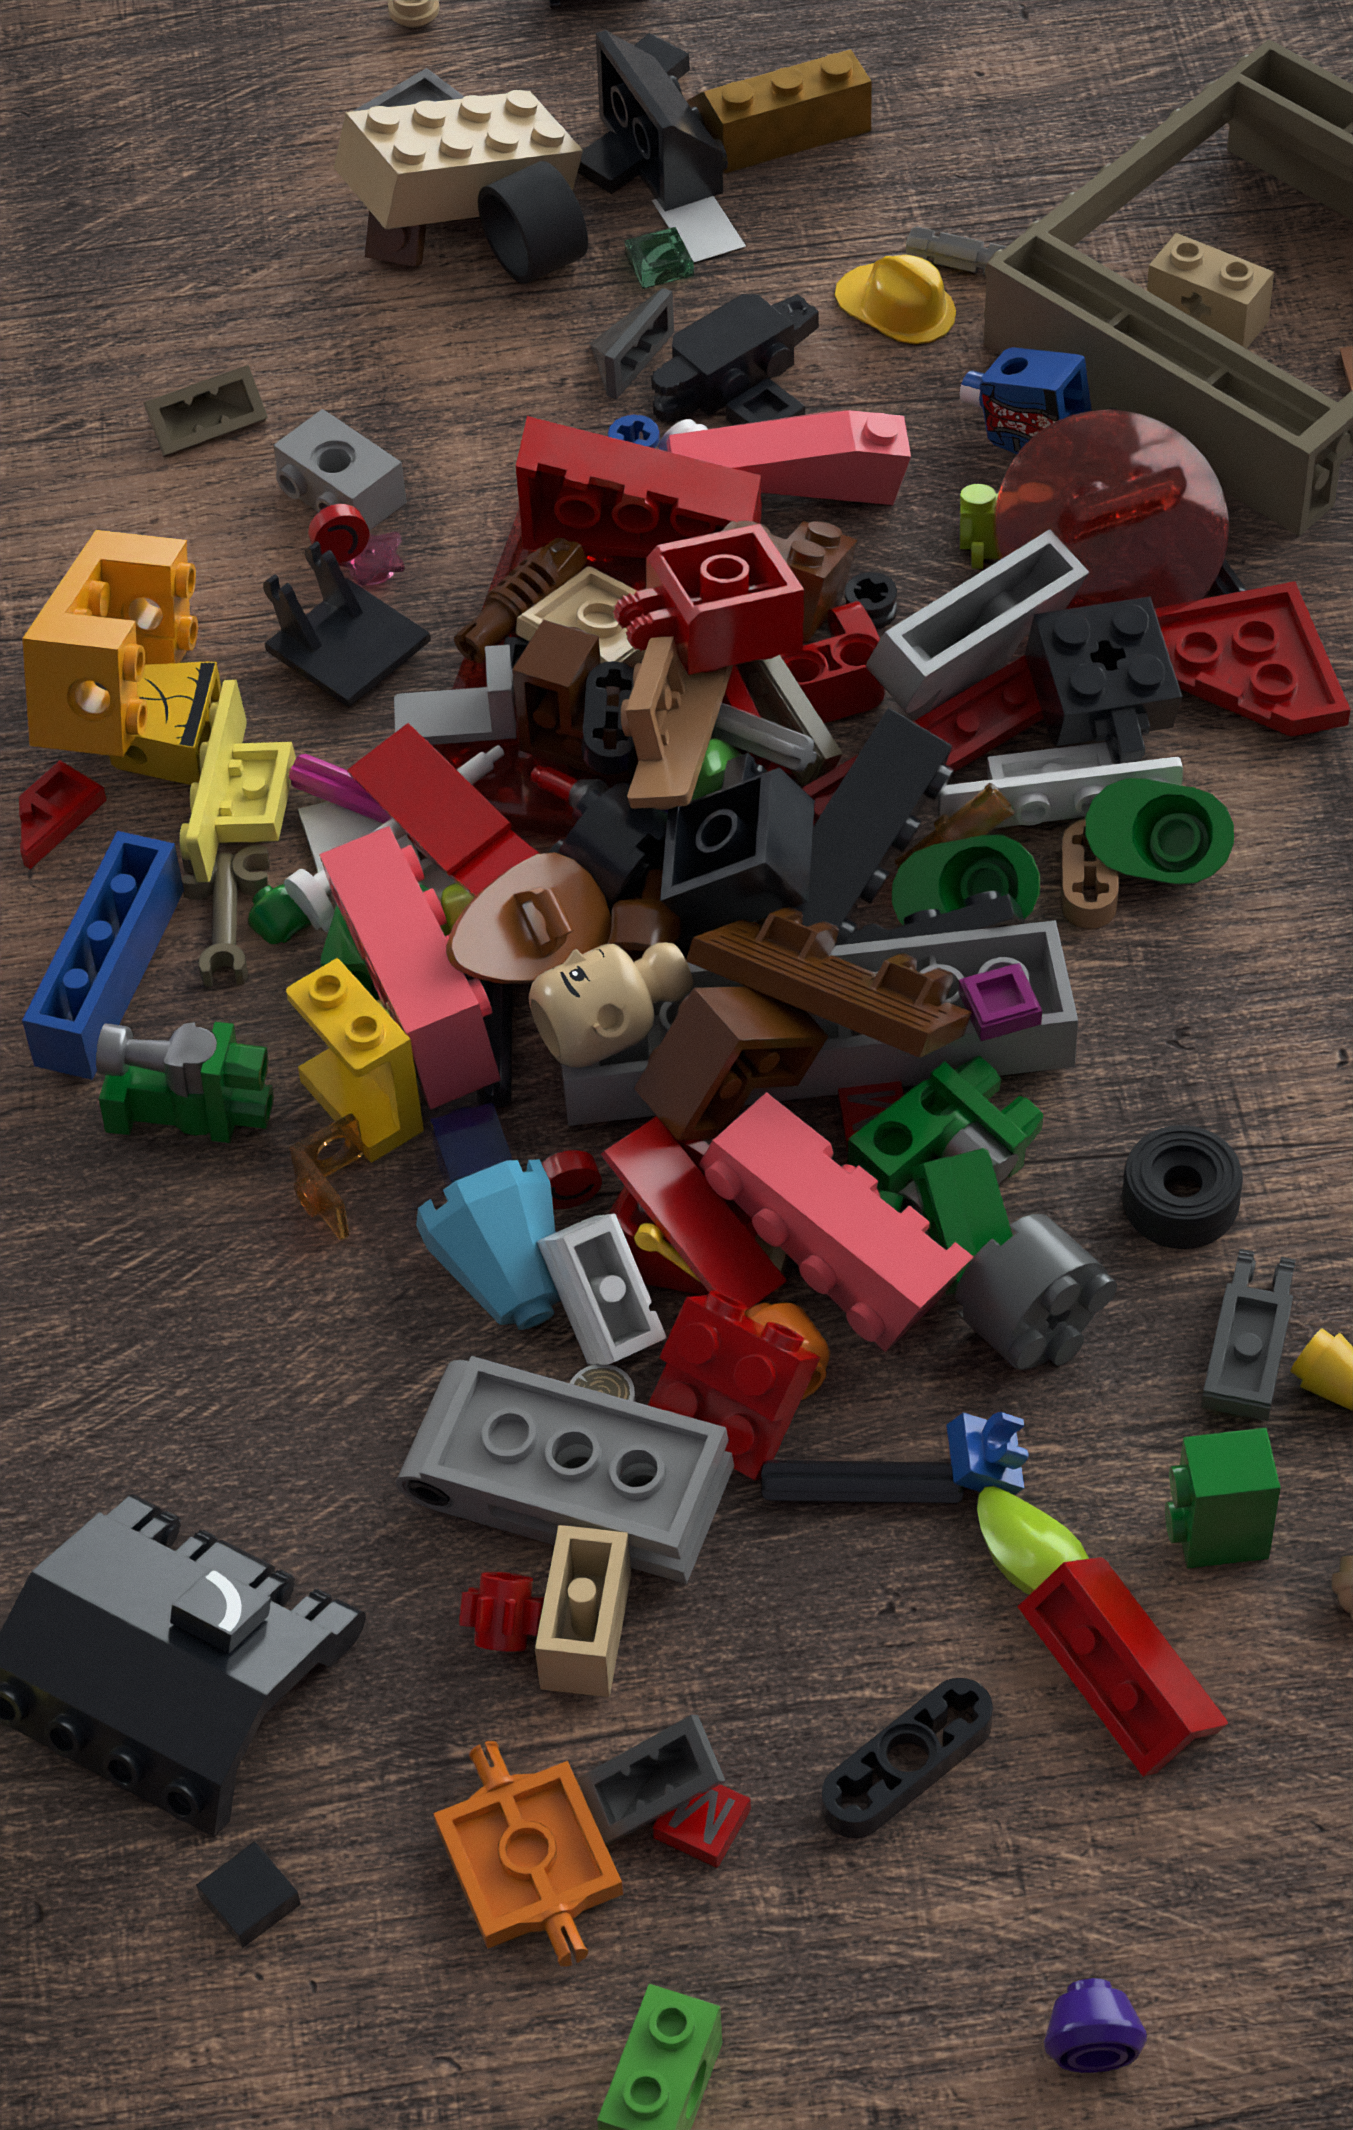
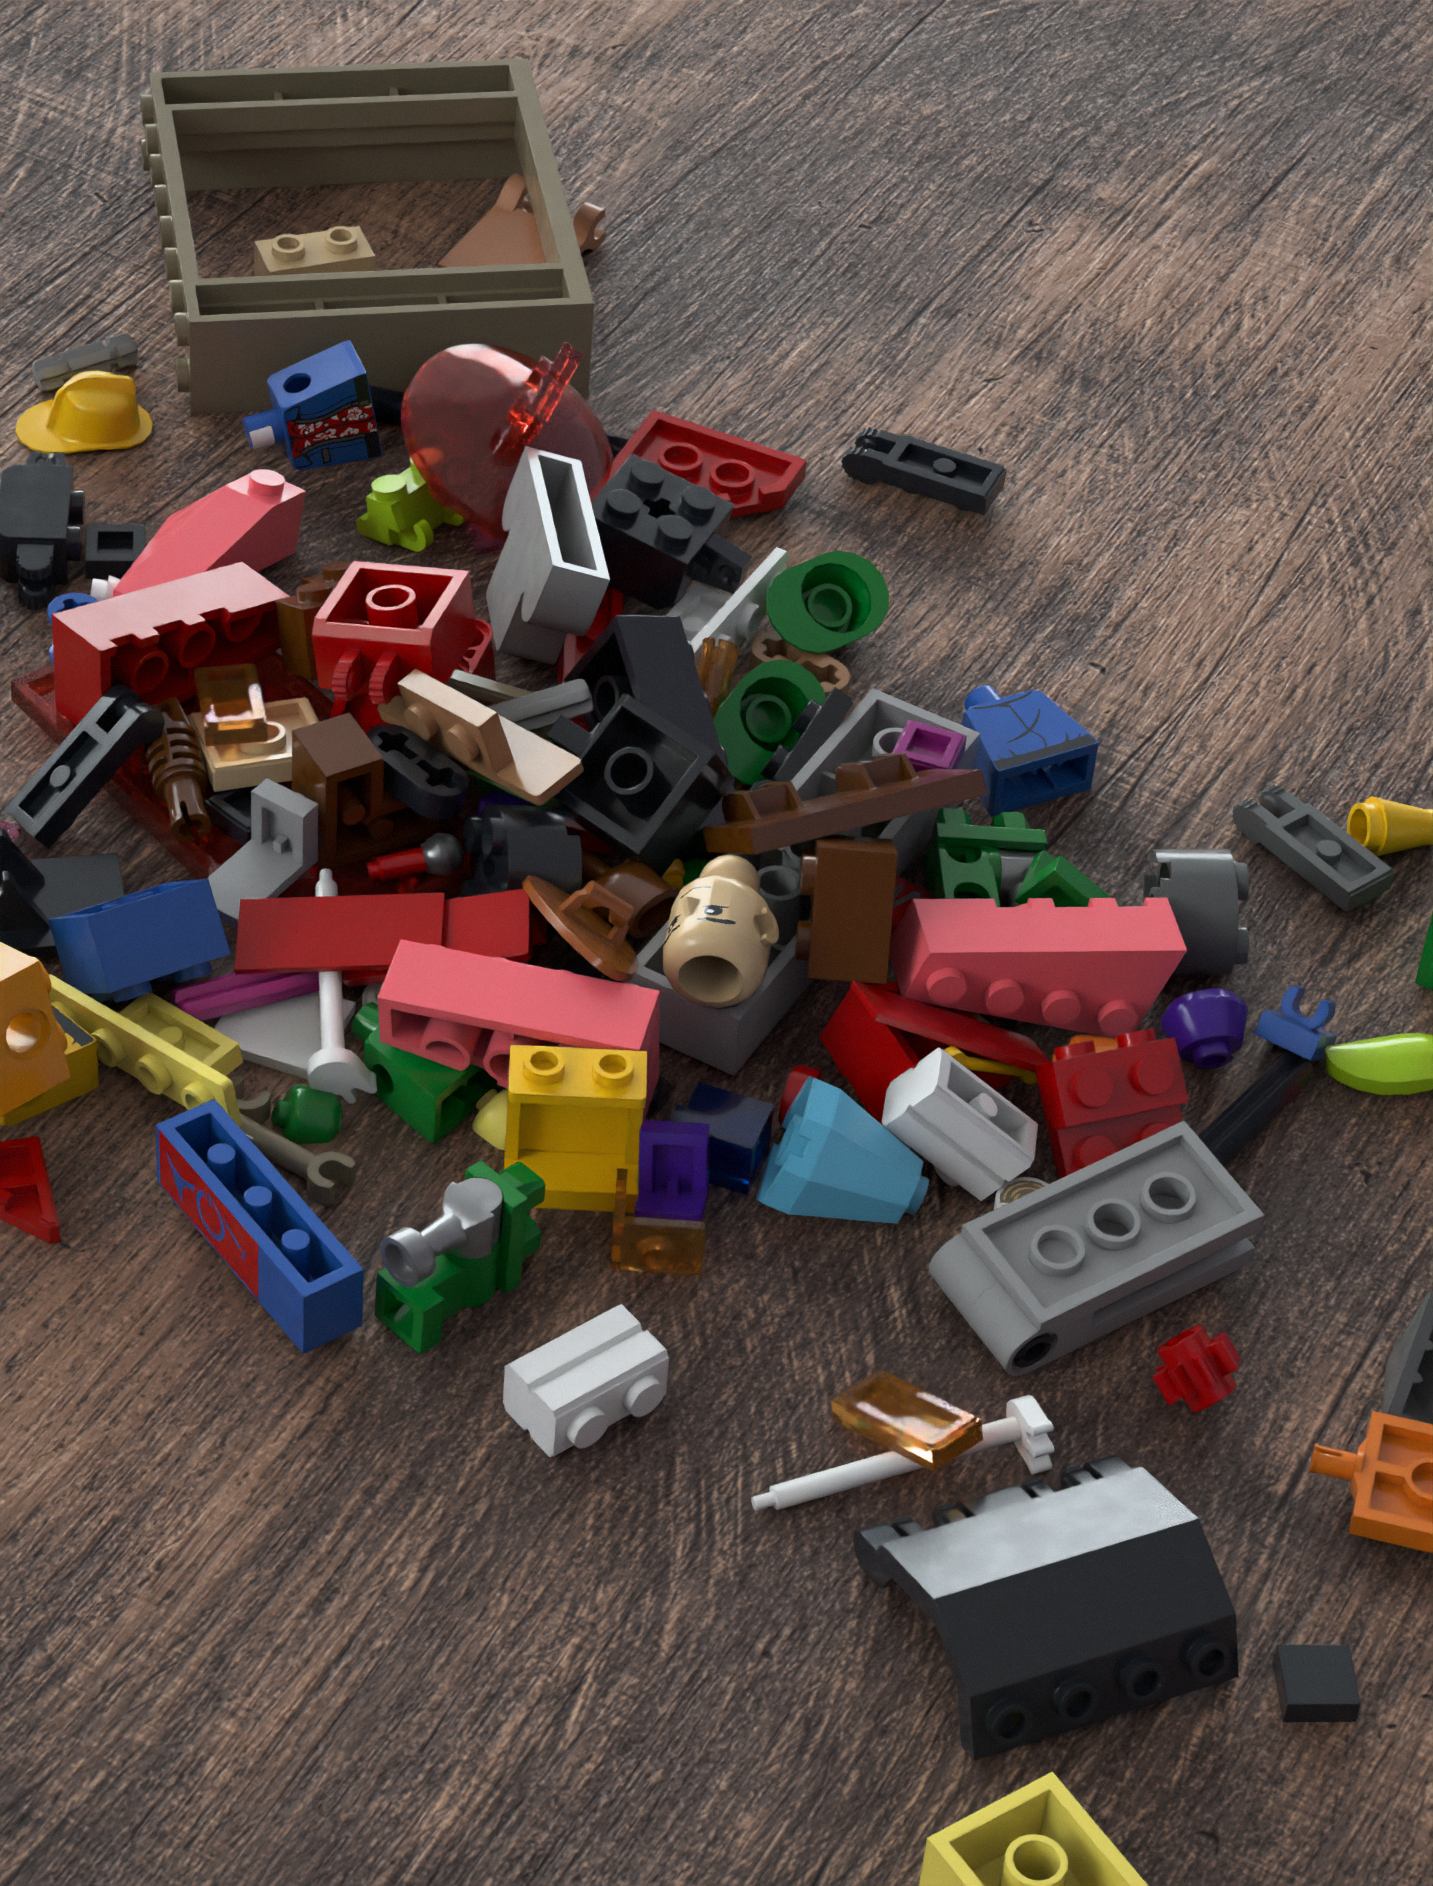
camera: 60 degrees left, 10 degrees down
(138, 1239) = (586, 1381): none -> white brick
(220, 1610) = (1083, 1504): tile -> none
(276, 1456) = (907, 1420): none -> clear orange tile
(312, 699) = (140, 938): none -> blue brick
(340, 1537) = (1023, 1425): none -> white piece
(397, 1158) = (673, 1170): none -> dark purple bracket
(473, 549) = (85, 763): none -> black plate
(583, 1611) = (1263, 1314): tan brick -> none
(602, 579) = (230, 704): none -> clear orange tile
(920, 1389) = (1206, 1026): none -> dark purple cone
(1139, 1063) = (1027, 749): none -> blue torso
(1180, 1220) = (1153, 775): black tyre -> none

